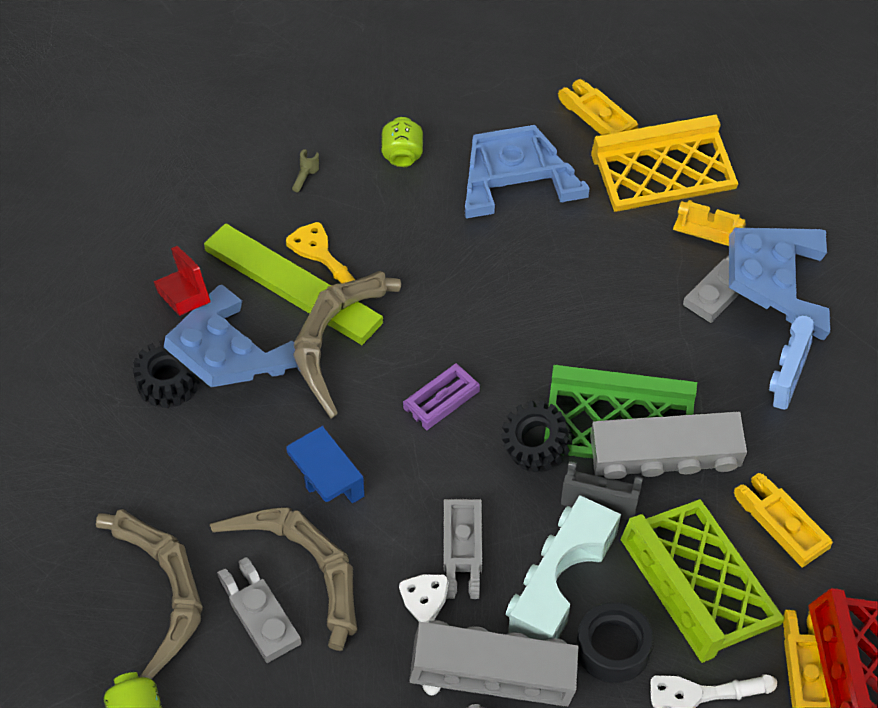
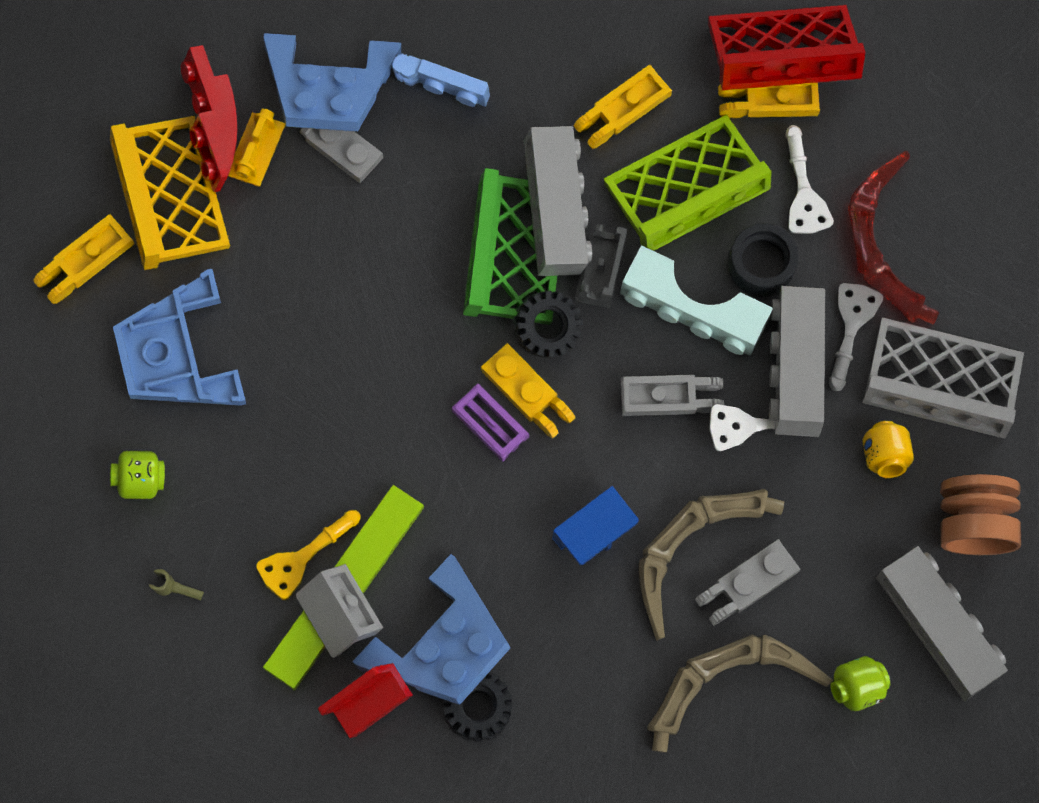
camera: 95 degrees left, 20 degrees up
(268, 270) = (338, 609): none -> light grey panel
(328, 304) = (396, 538): dark tan animal -> none
(471, 426) = (525, 389): none -> yellow hinge
(728, 193) = (216, 124): none -> red slope

